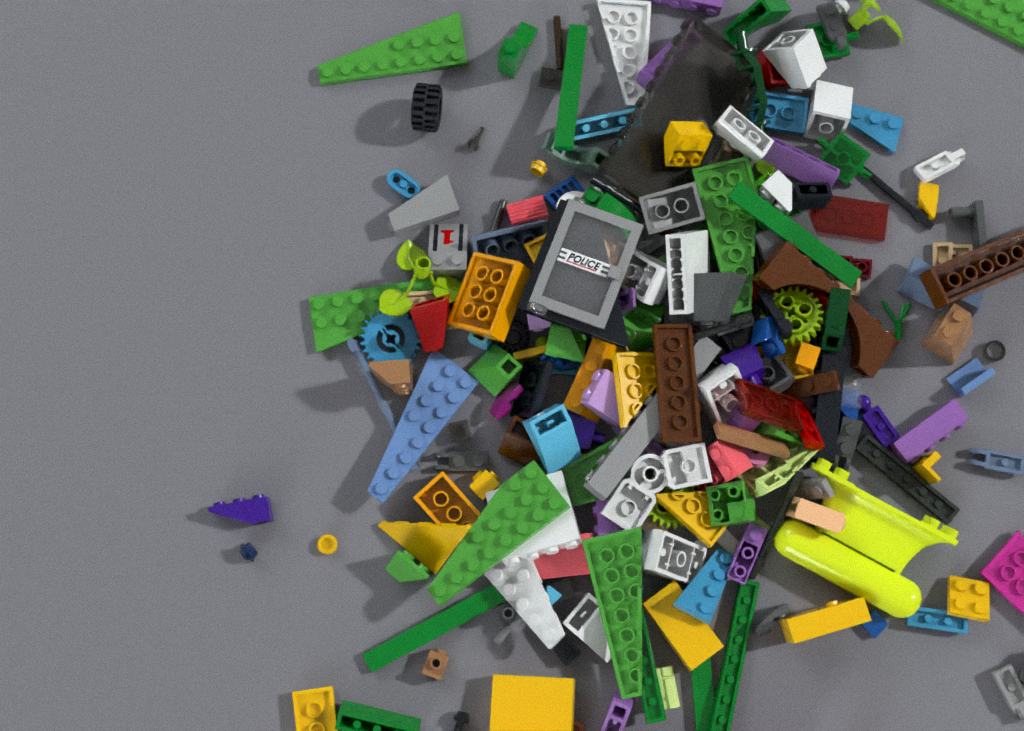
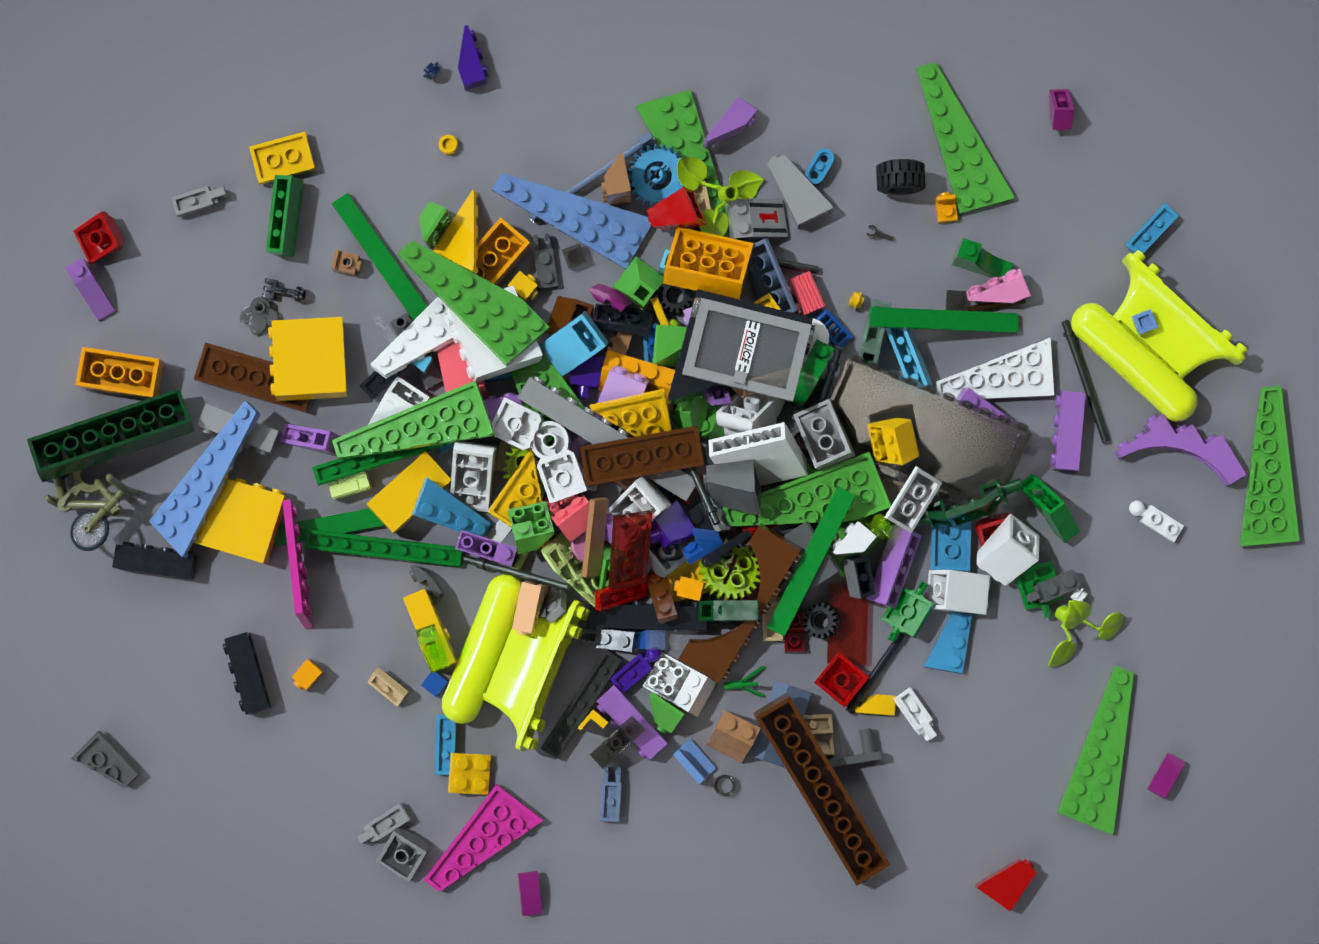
camera: 85 degrees right, 5 degrees up
(346, 257) = (732, 123): none -> medium lavender slope
(460, 74) = (946, 207): none -> light orange bracket
(546, 30) = (1004, 289): none -> bright pink slope
(554, 395) = (621, 343): none -> medium nougat brick
(837, 230) = (810, 620): none -> black tyre
(850, 617) = (432, 648): none -> clear neon green slope
(875, 671) = (387, 687): none -> tan plate
(895, 382) = (679, 684): none -> white slope
(904, 226) = (841, 679): none -> red slope
(924, 397) = (664, 714): none -> bright green slope
(951, 447) = (617, 742): none -> clear smoke slope

